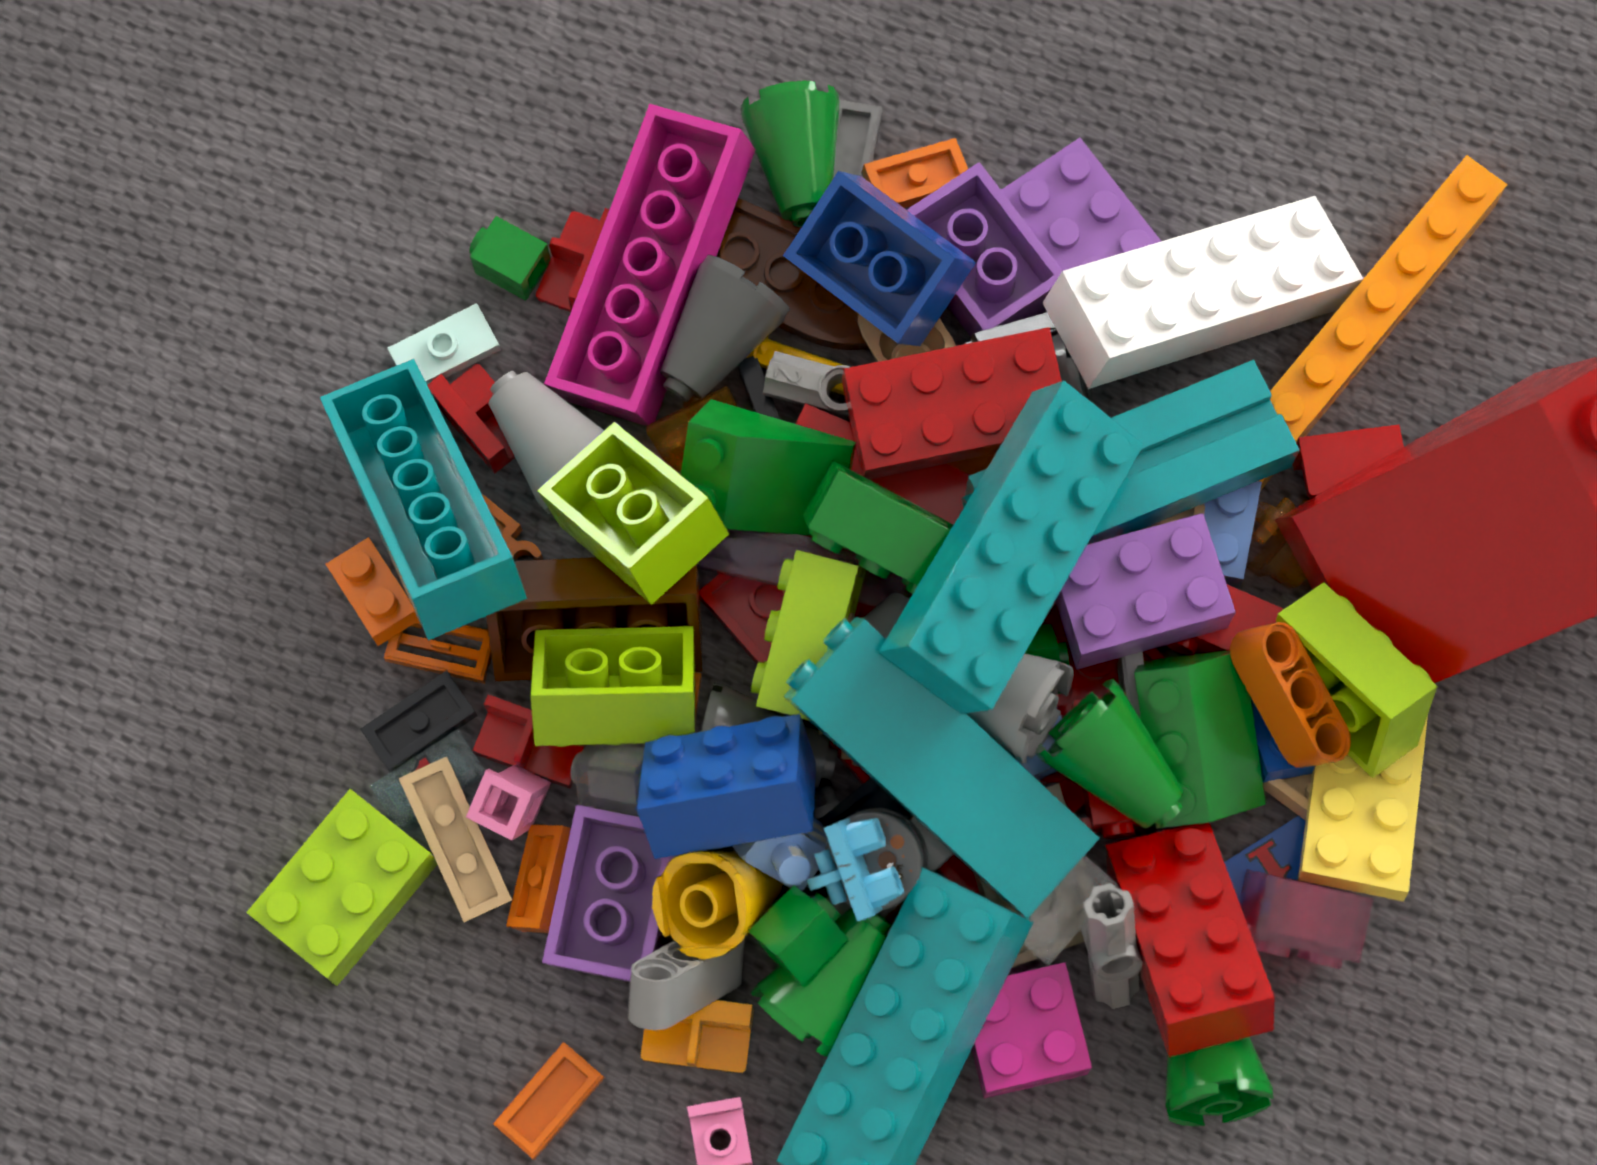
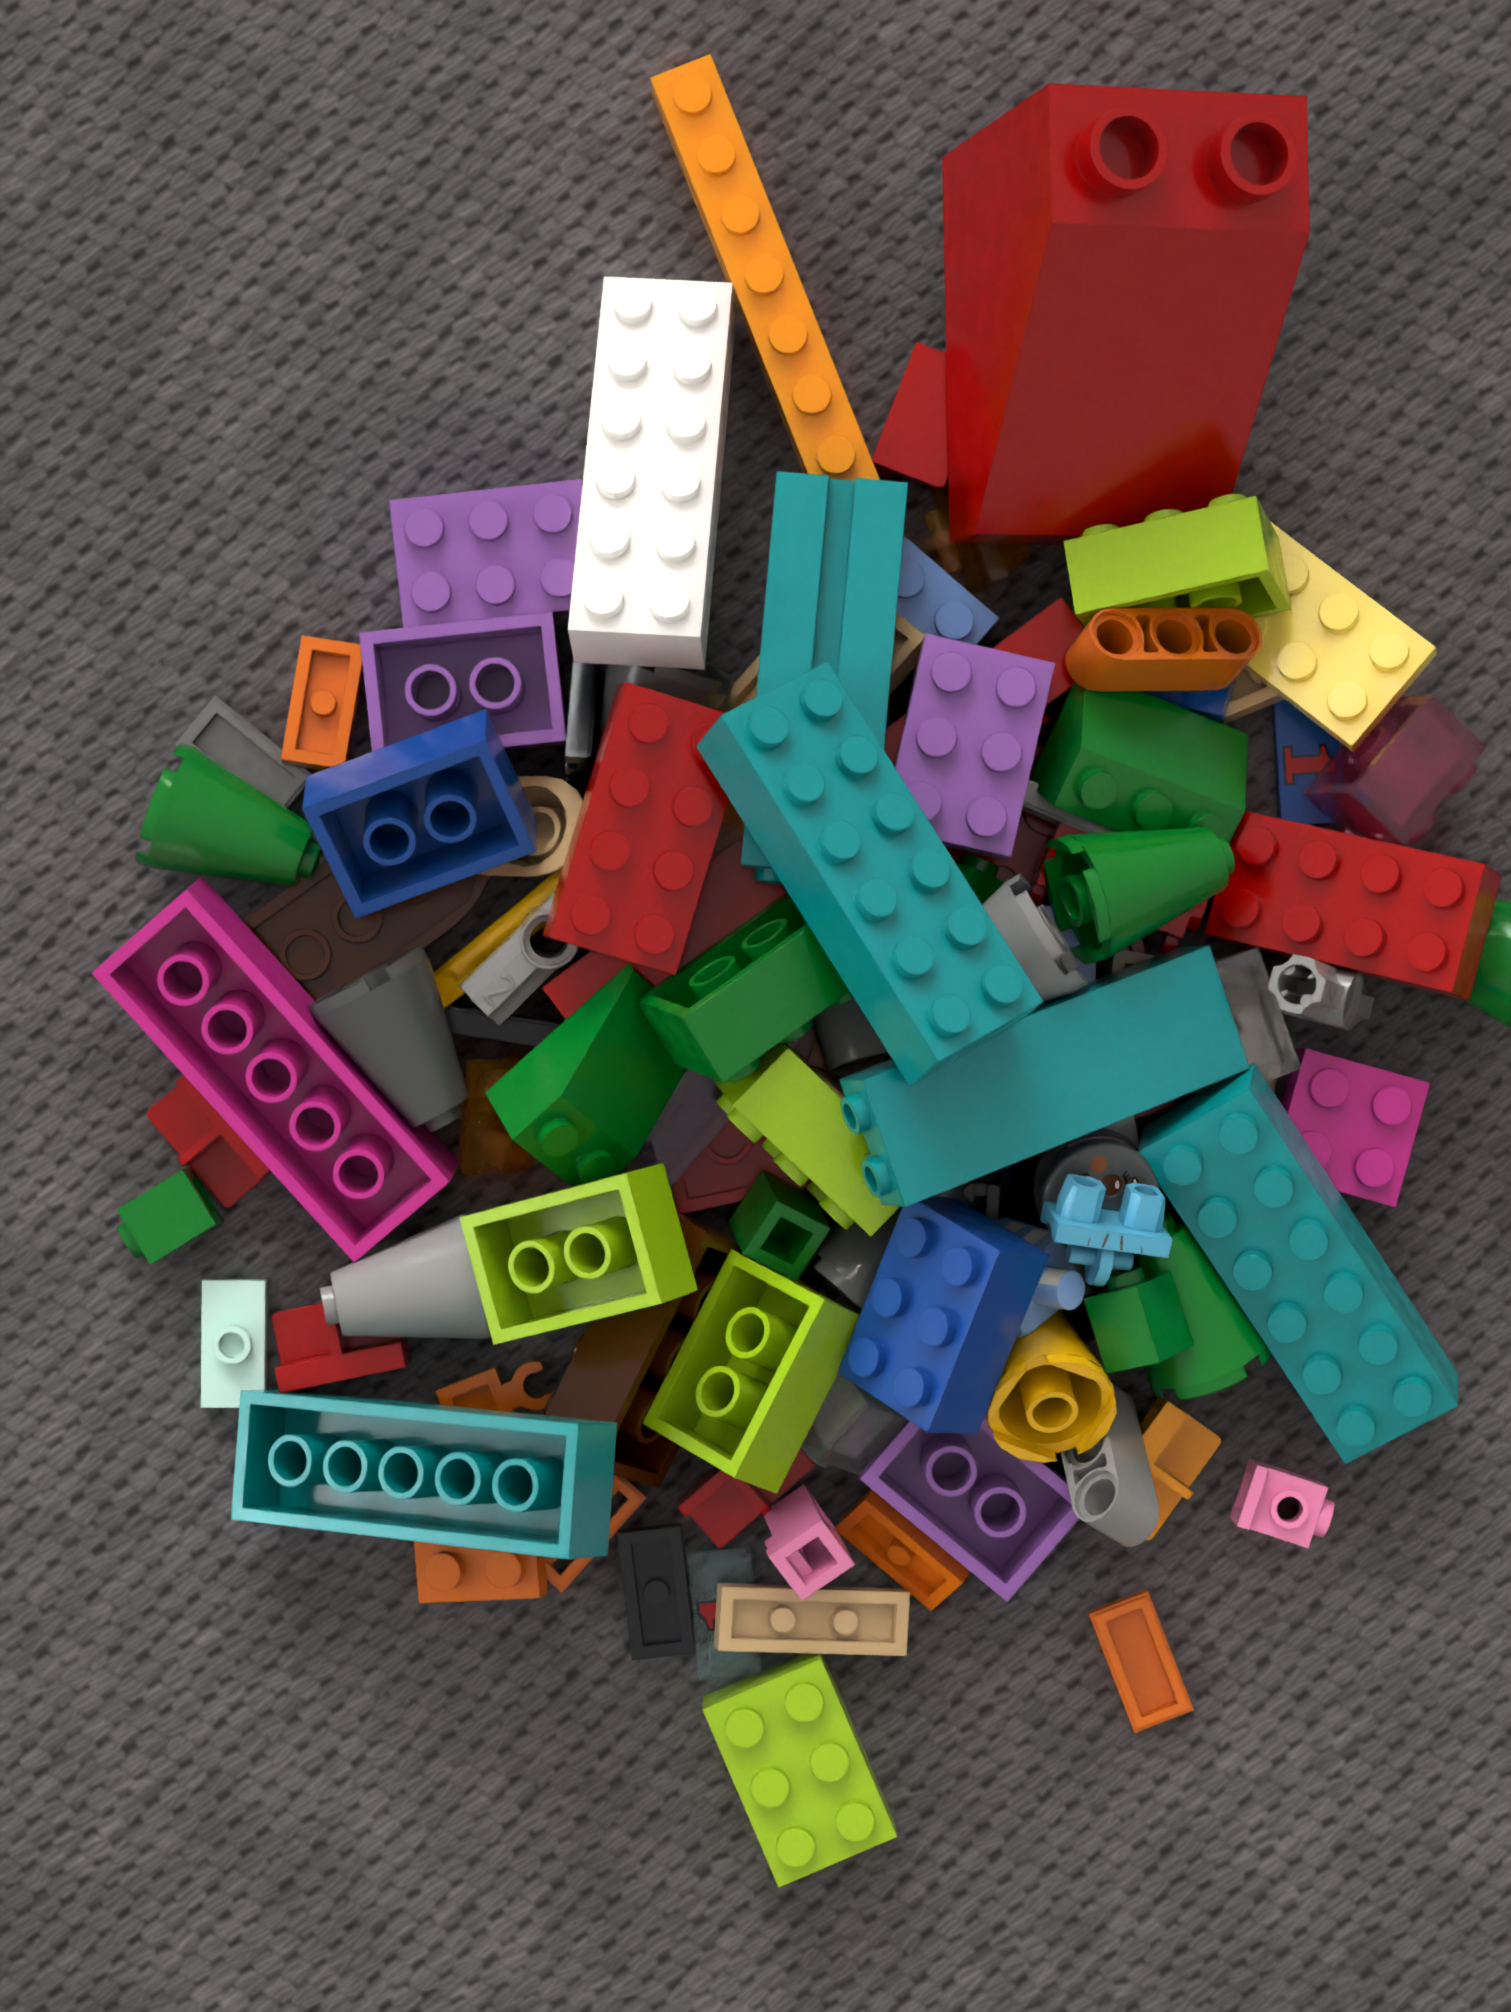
camera: 65 degrees left, 15 degrees up
(727, 655) = (779, 1225): none -> green brick

